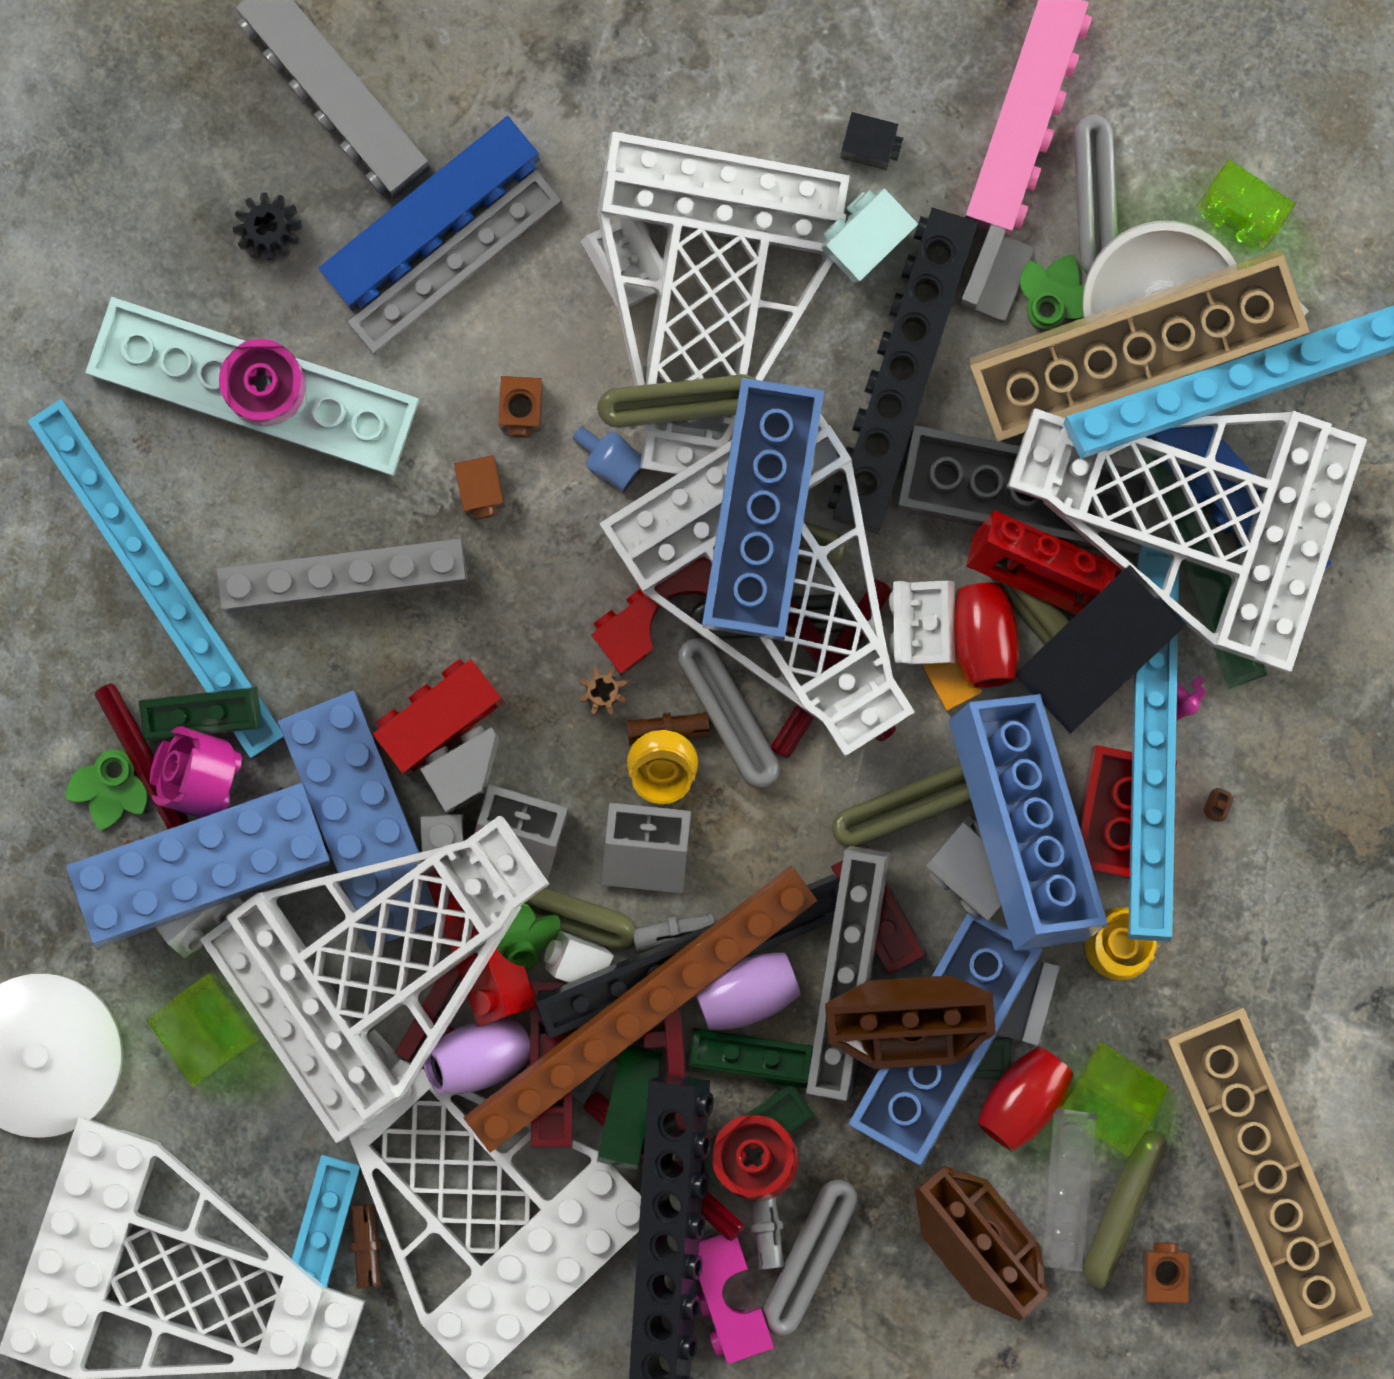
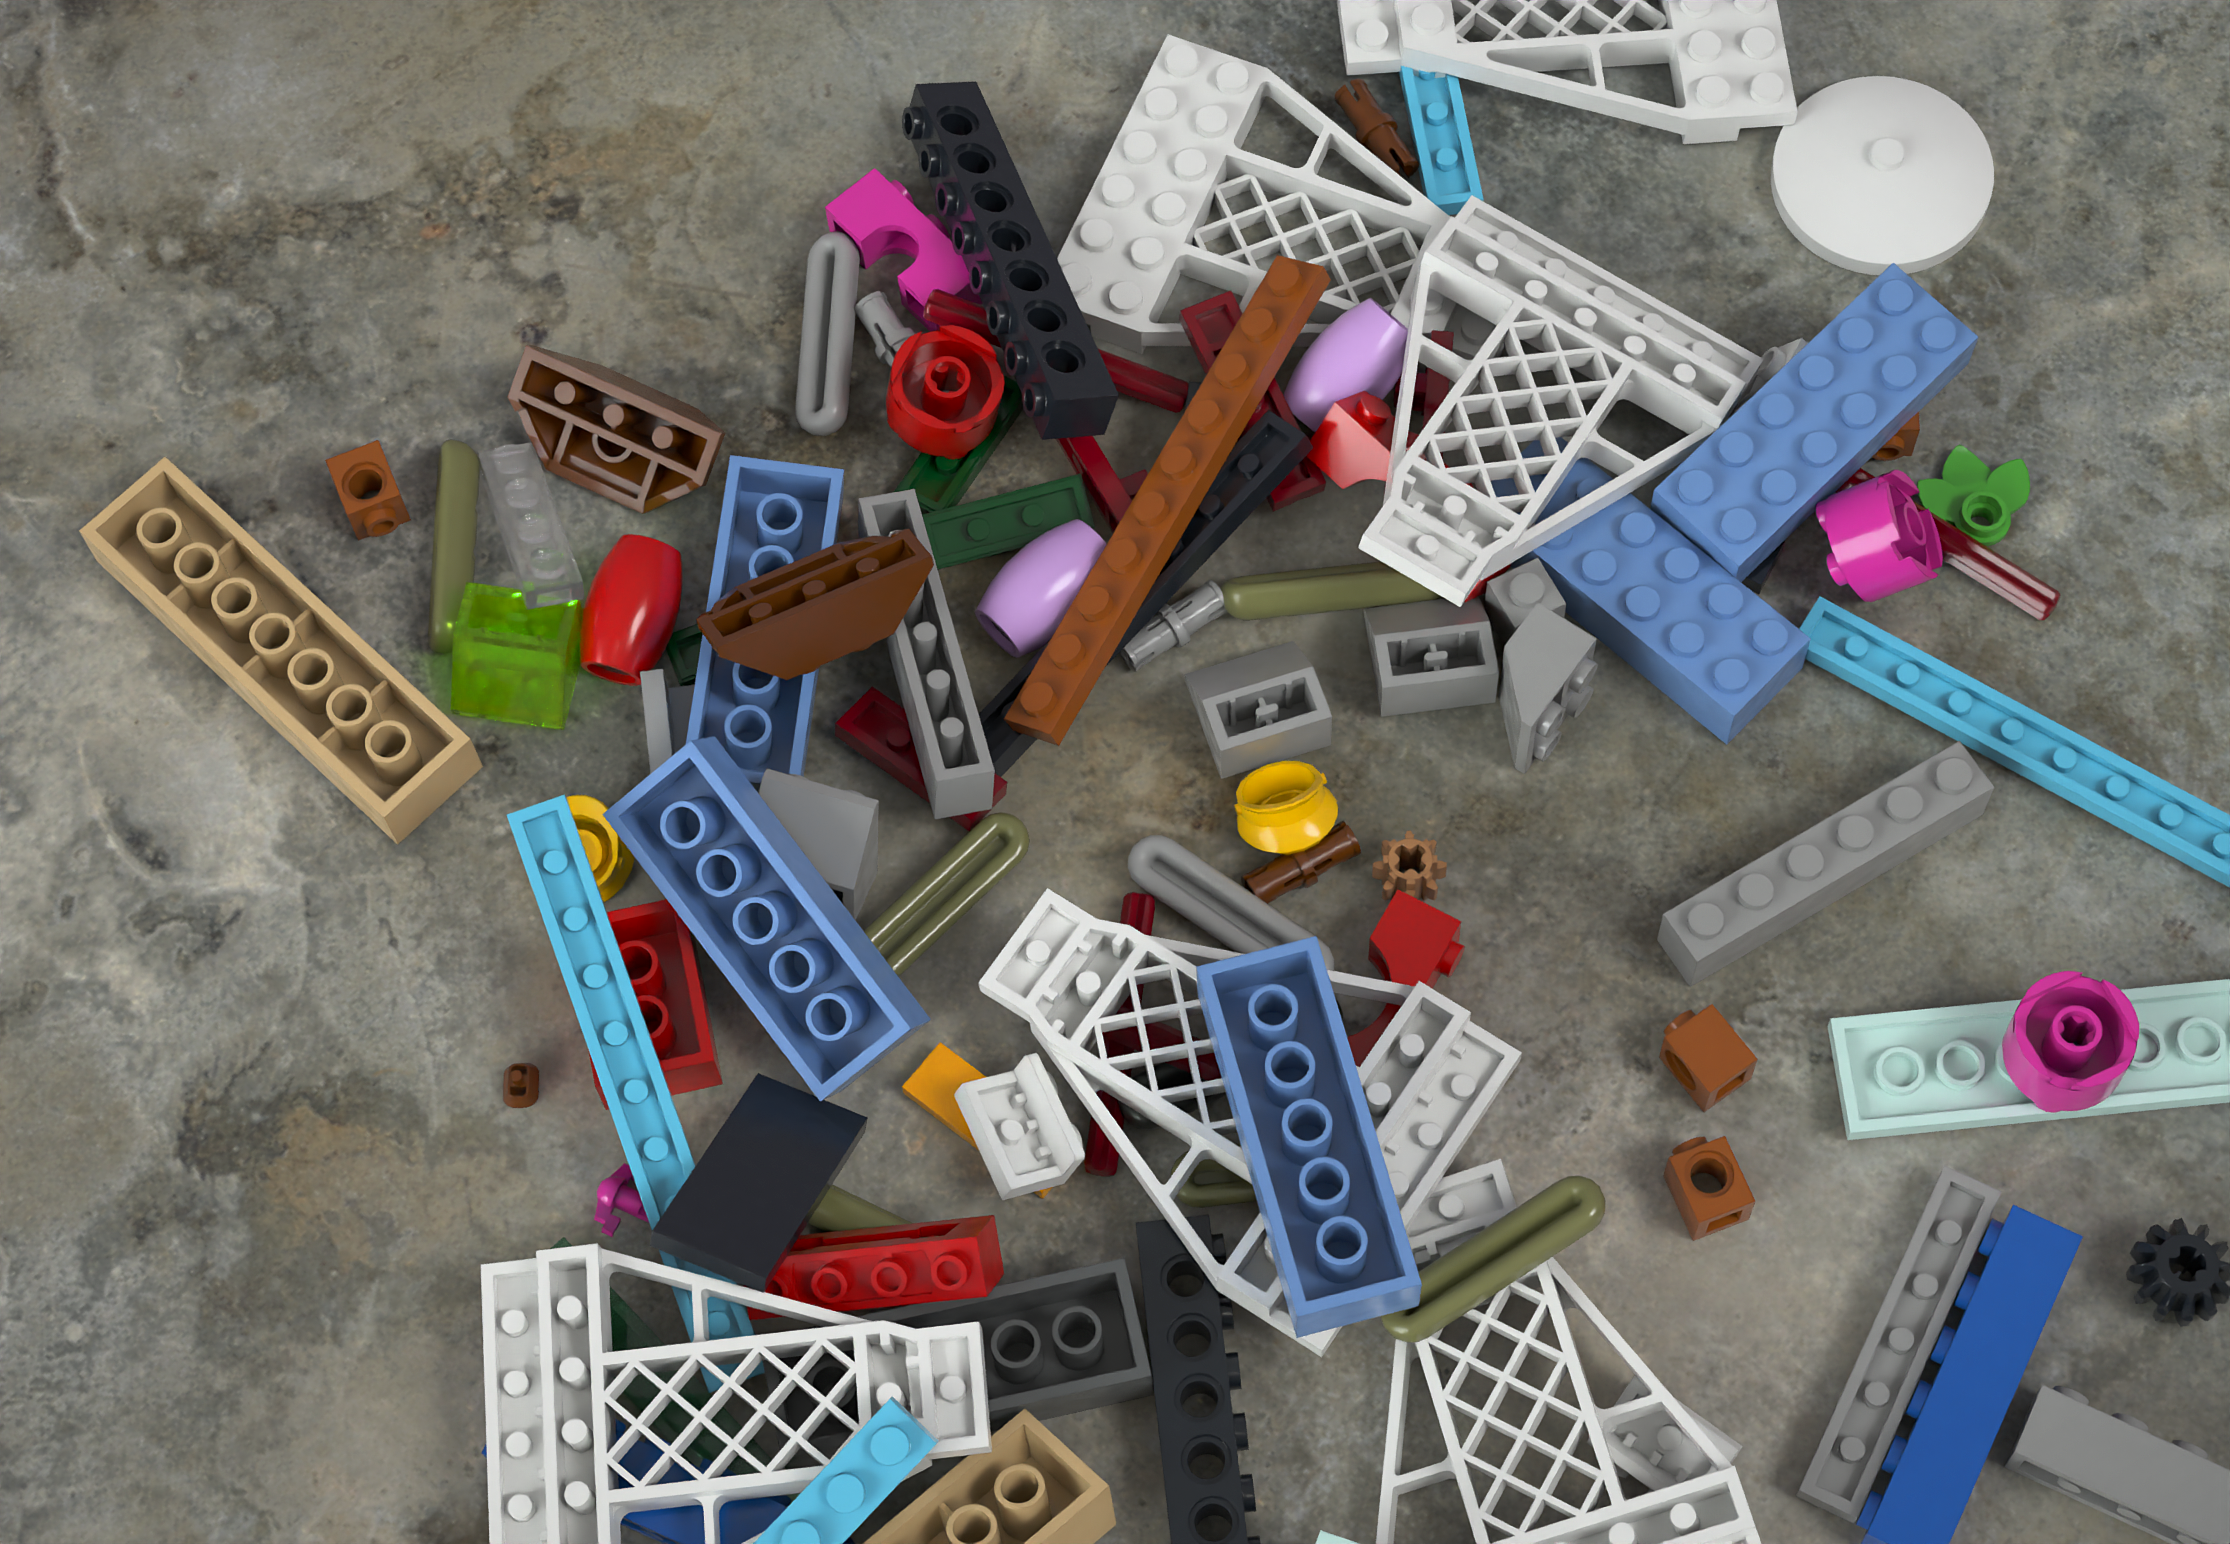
camera: 160 degrees right, 20 degrees down
(201, 712) = (1912, 619): dark green tile -> none
(203, 1029) = (1701, 272): clear neon green slope -> none
(437, 716) = (1608, 735): red brick -> none
(528, 936) = (1350, 522): bright green plate -> none
(574, 957) = (1281, 534): white brick -> none
(610, 458) = (1537, 1165): medium blue piece -> none
(627, 1107) = (1138, 419): dark green tile -> none
(985, 635) = (928, 1150): red piece -> none

